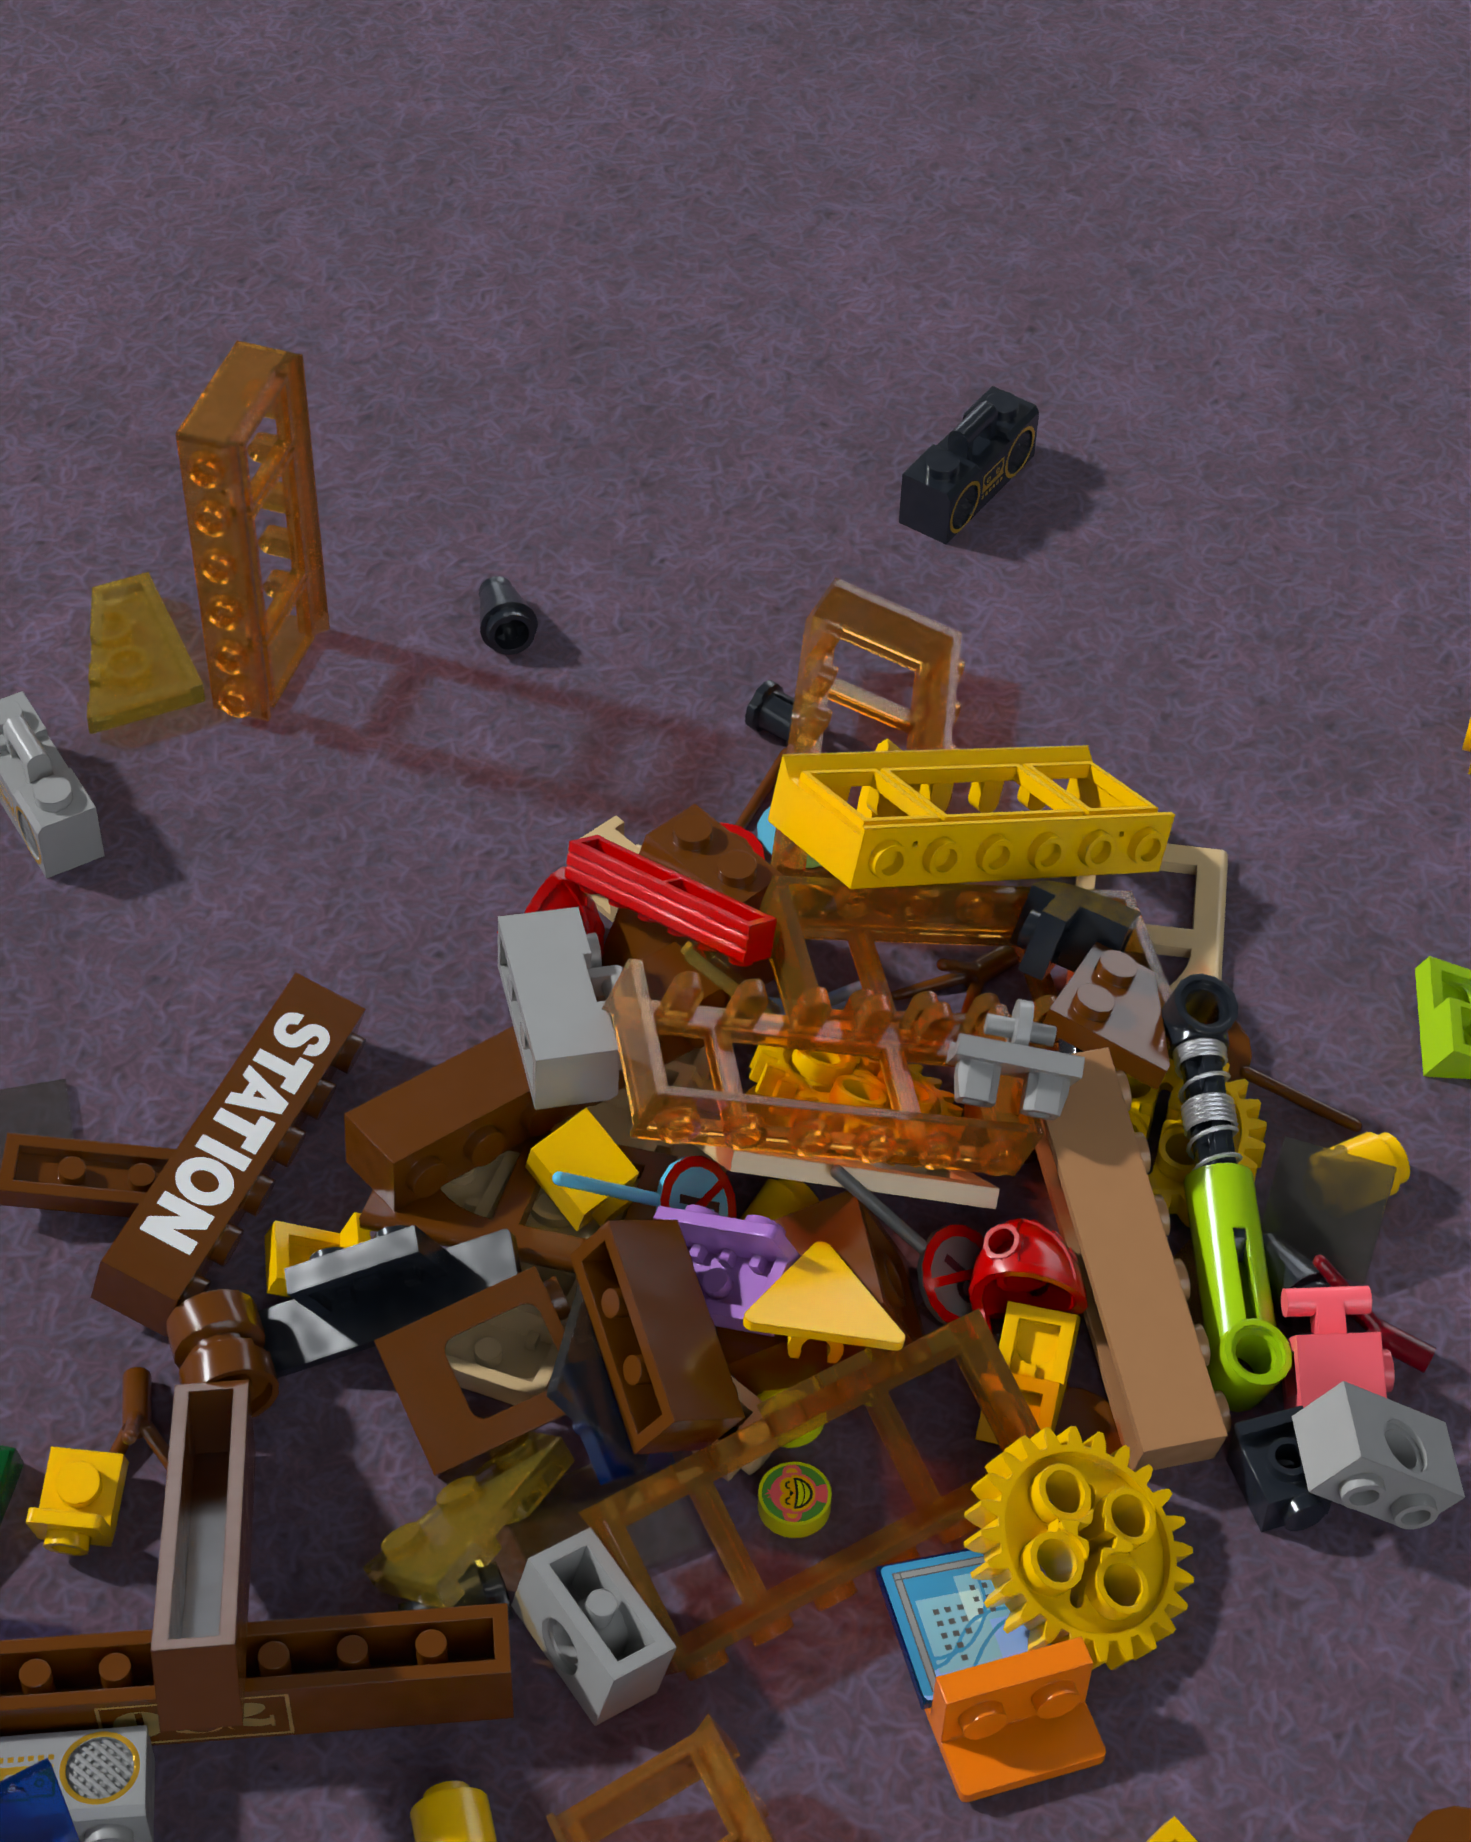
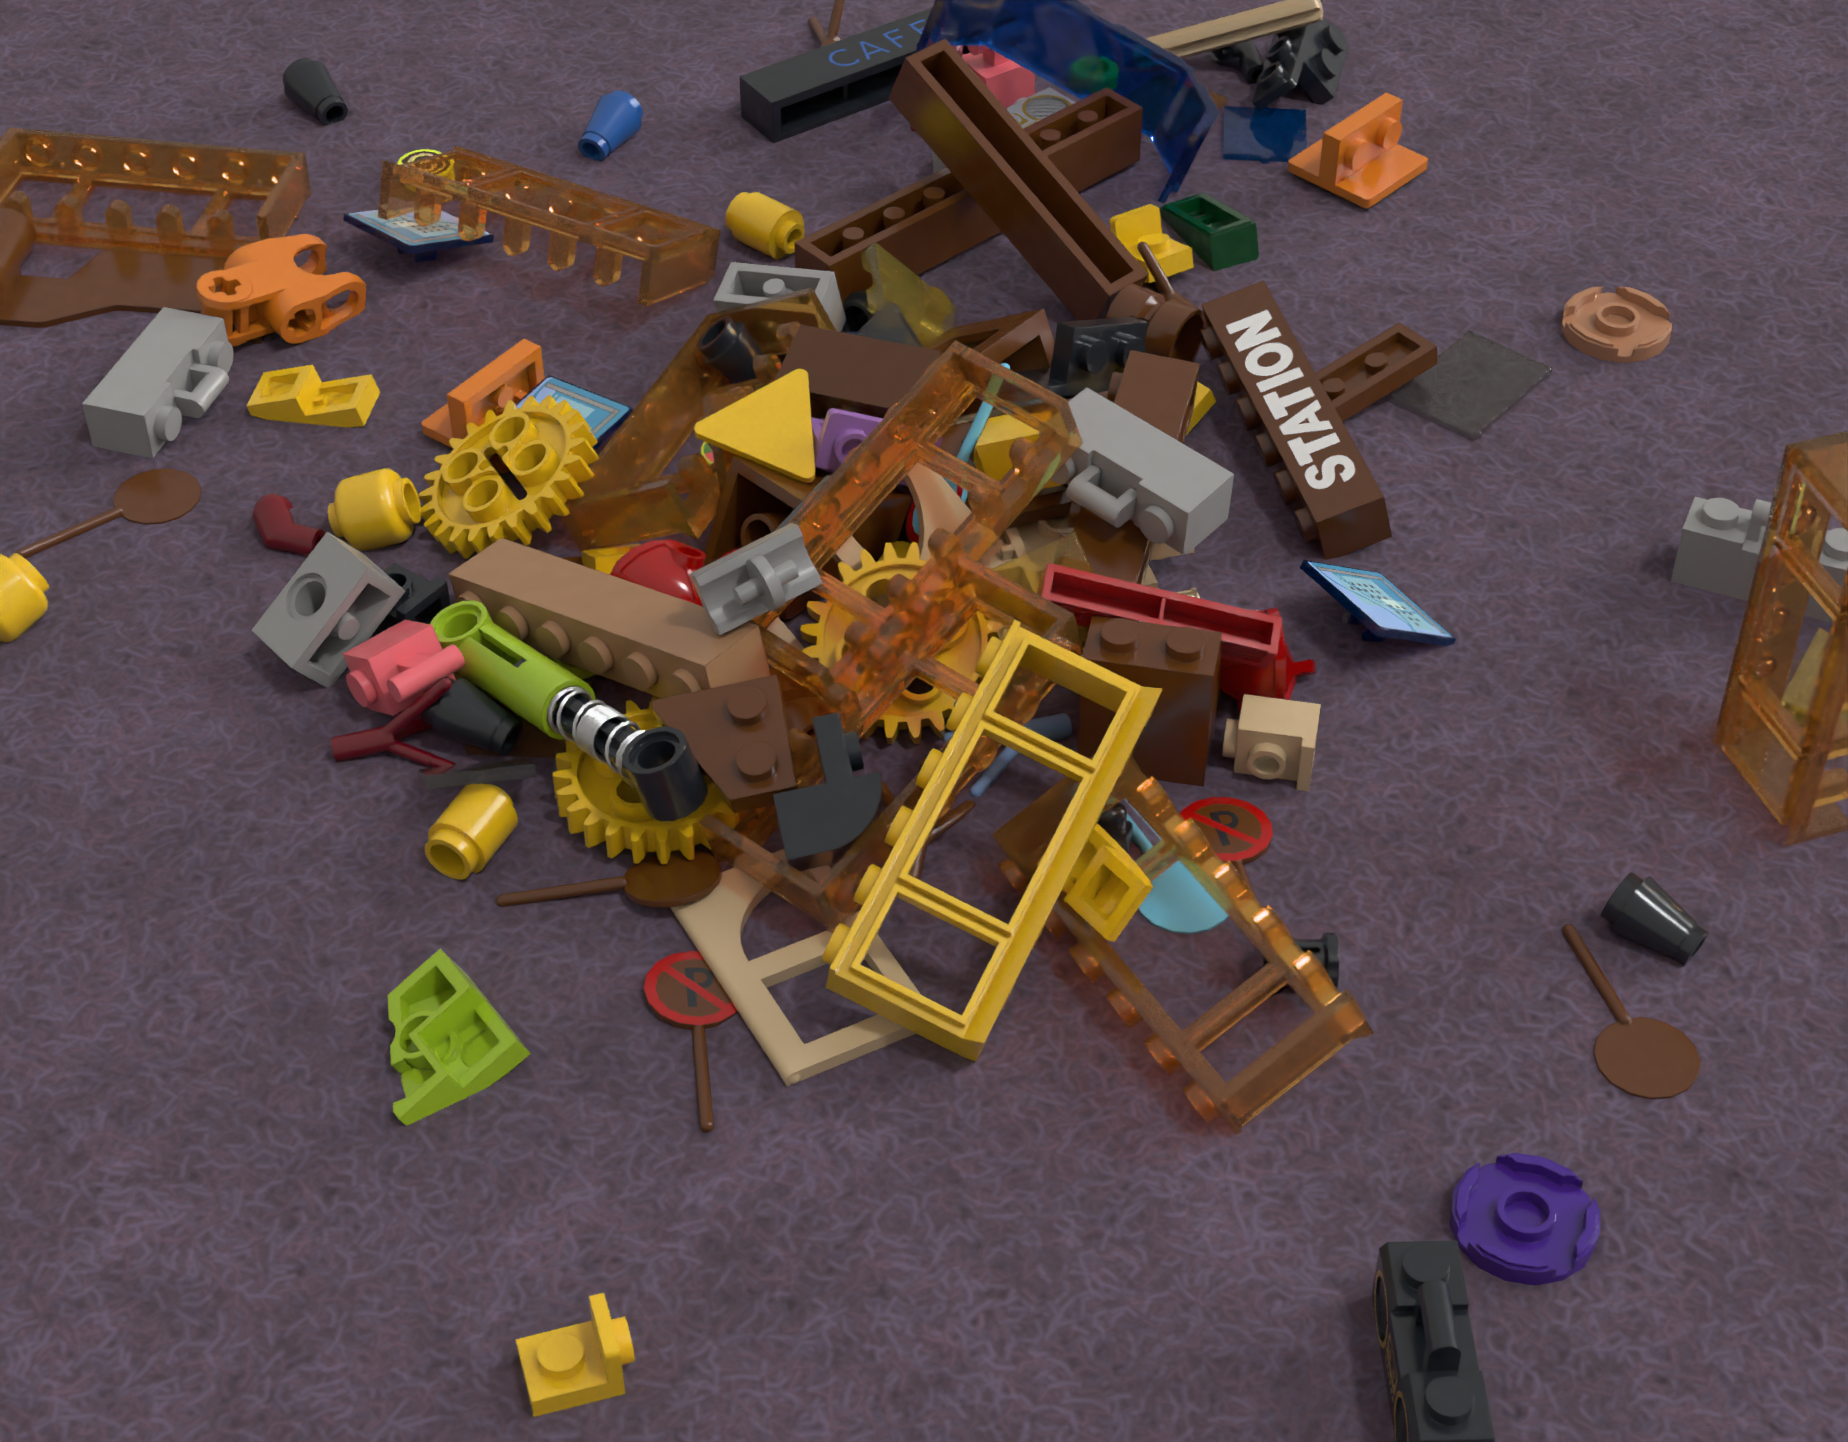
camera: 145 degrees right, 5 degrees down
(393, 934) = (1376, 604): none -> piece
(603, 567) = (1637, 1053): none -> reddish brown piece
(701, 1590) = (729, 349): none -> black cone
(807, 537) = (1519, 1239): none -> dark purple tile
(1240, 1624) = (375, 509): none -> yellow head
(1254, 959) = (690, 997): none -> reddish brown piece
(1351, 1684) = (278, 528): none -> dark red arm

